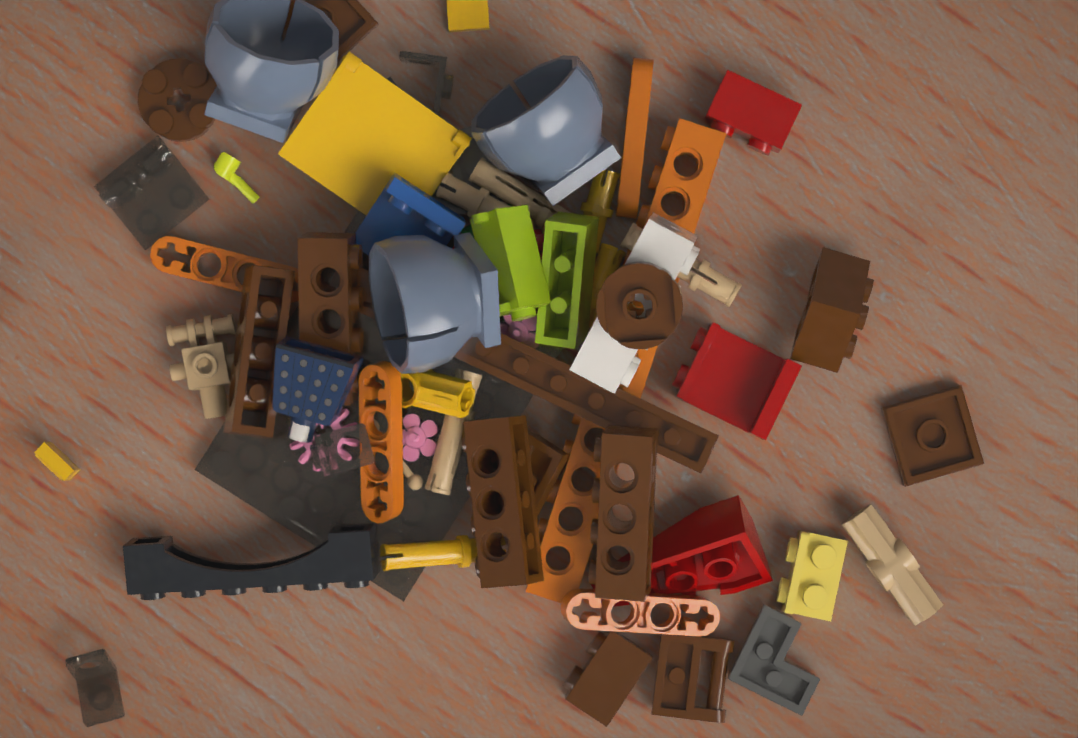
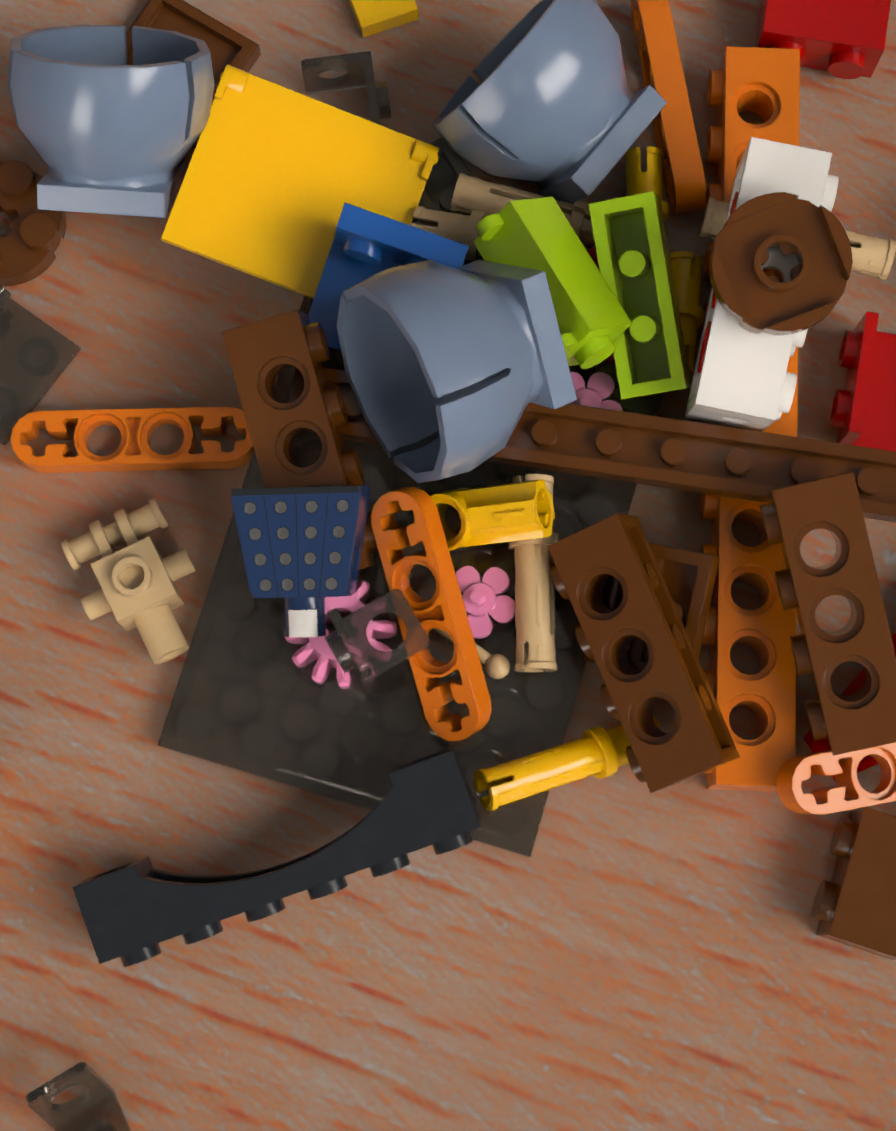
camera: 15 degrees left, 10 degrees down
(226, 167) = (93, 301): neon yellow hand -> none
(259, 329) = (212, 586): reddish brown brick -> none

